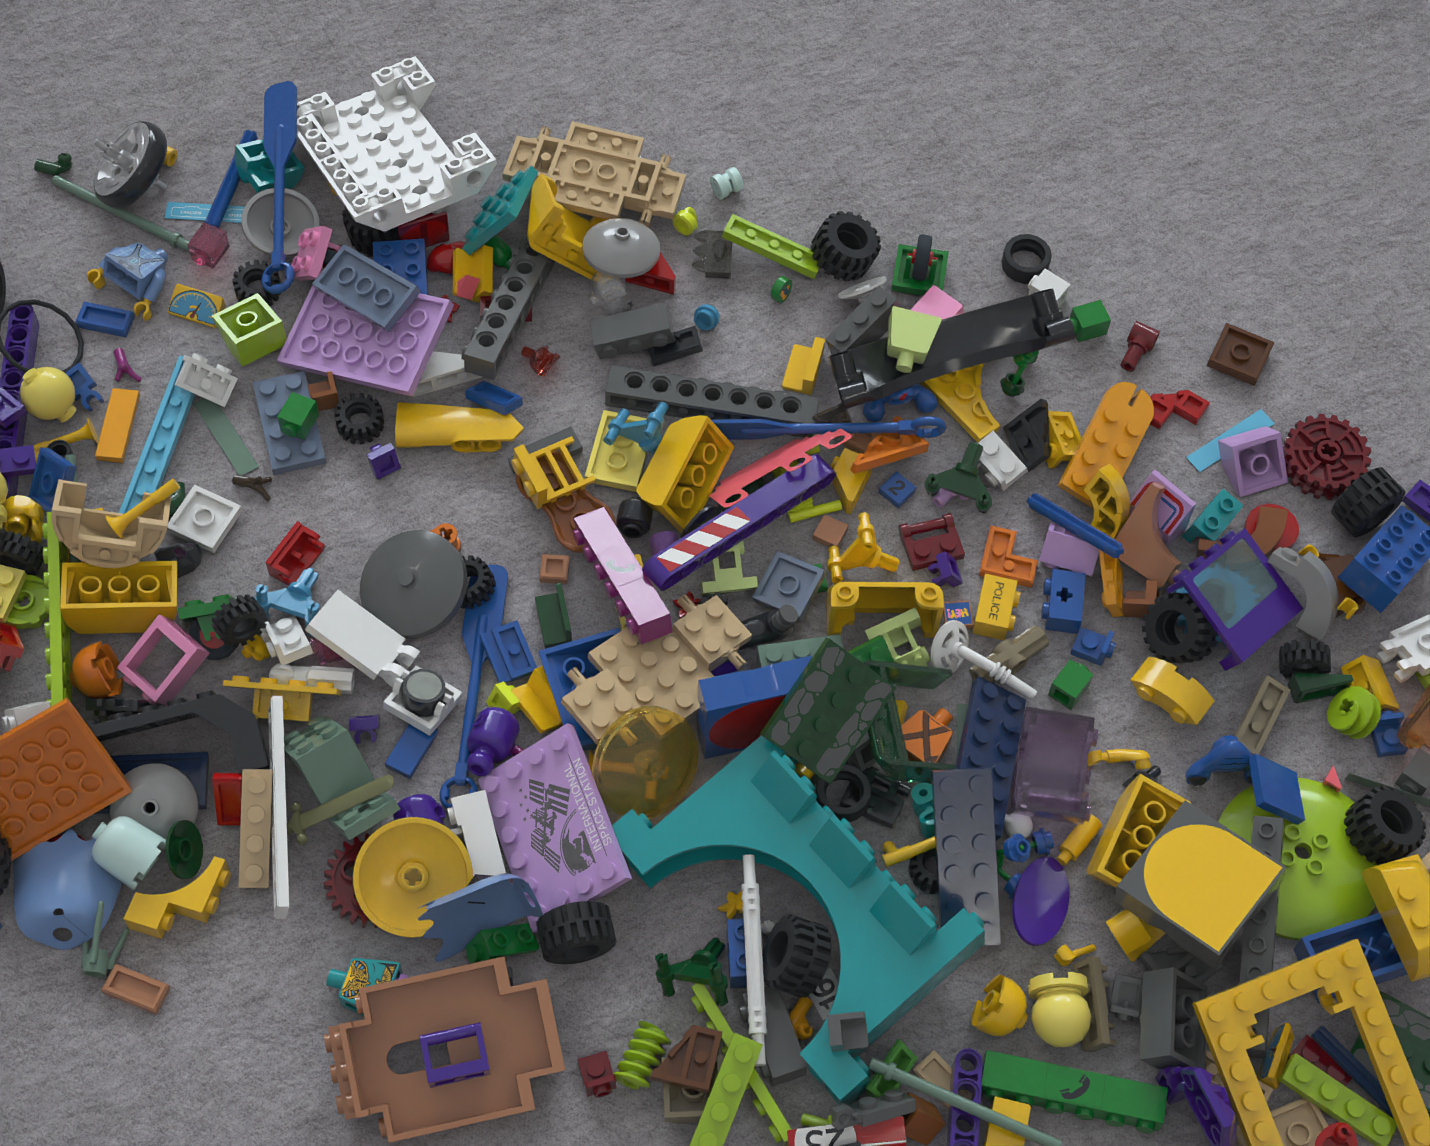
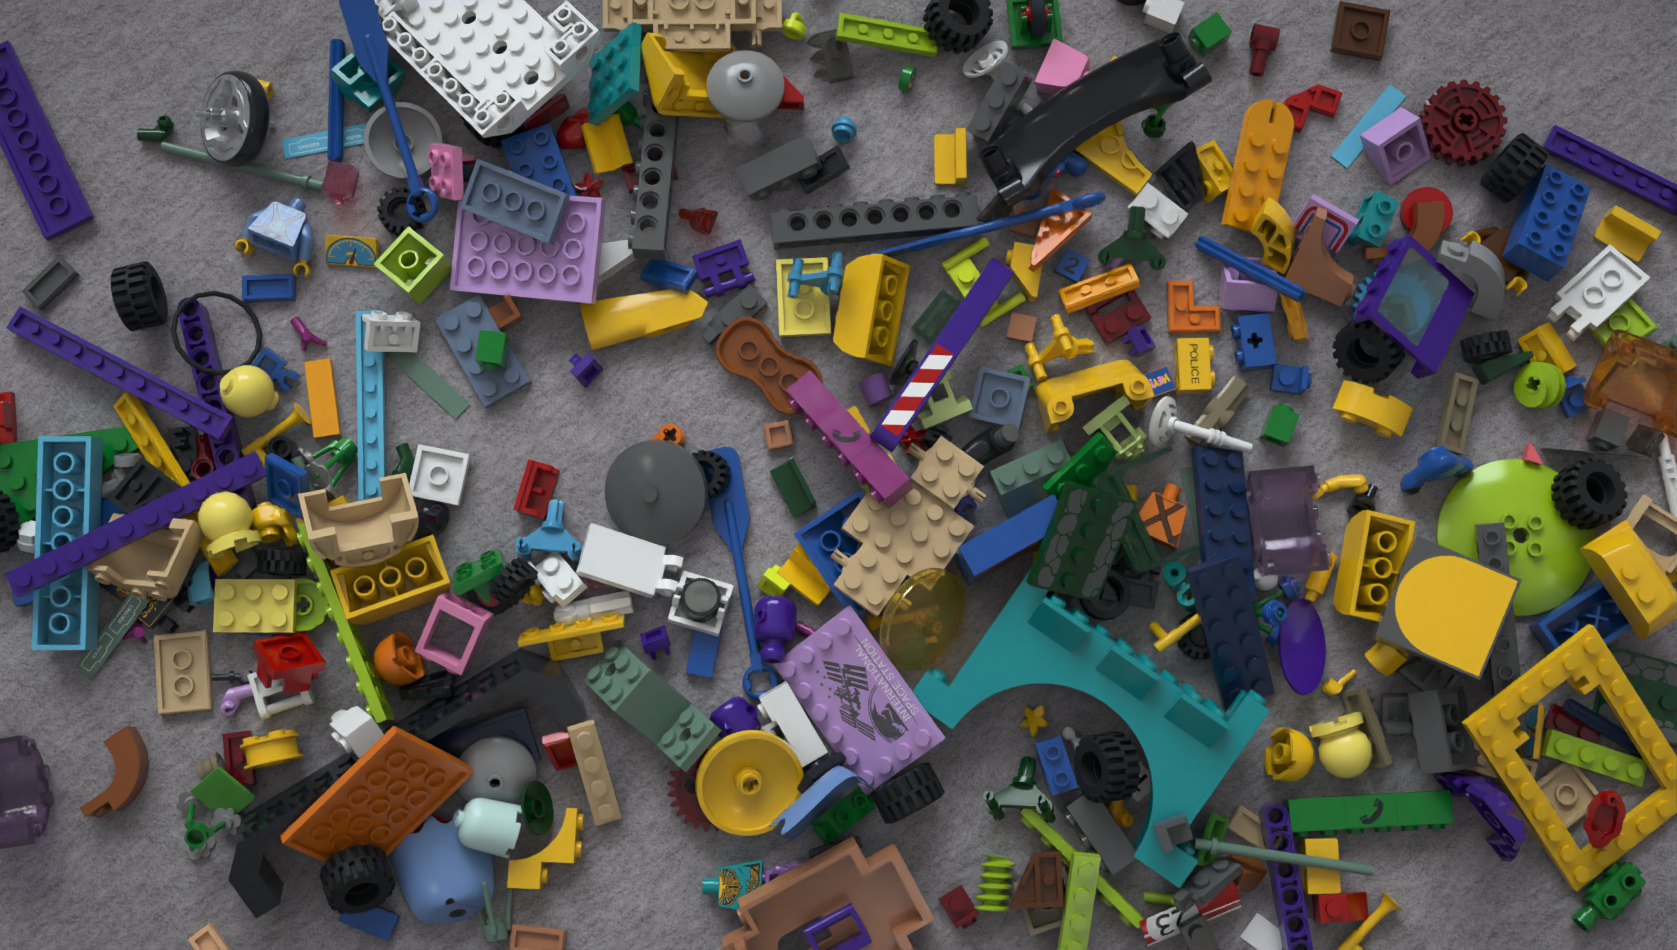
camera: 10 degrees left, 20 degrees up
(116, 473) = (341, 453): none -> plant
(121, 522) = (367, 514): yellow piece -> none
(252, 482) = (471, 424): dark brown bar -> none
(278, 808) = (609, 750): white tile -> none
(301, 821) = (649, 744): olive sword -> none
(359, 431) = (544, 315): black tyre -> none
(466, 287) = (606, 163): coral piece -> none
(508, 652) = (763, 535): blue plate -> none
(534, 478) = (730, 350): yellow plate -> none
(546, 400) = (722, 261): none -> dark purple plate
(634, 517) = (837, 366): black head -> none
(754, 959) = (1069, 774): white axle -> none
(781, 457) = (954, 270): coral piece -> none
(910, 336) = (1051, 113): yellowish green torso -> none
(918, 513) = (1099, 288): none -> light orange tile
(1137, 602) = (1324, 323): dark orange panel -> none
(1276, 789) = (1488, 486): blue tile -> none

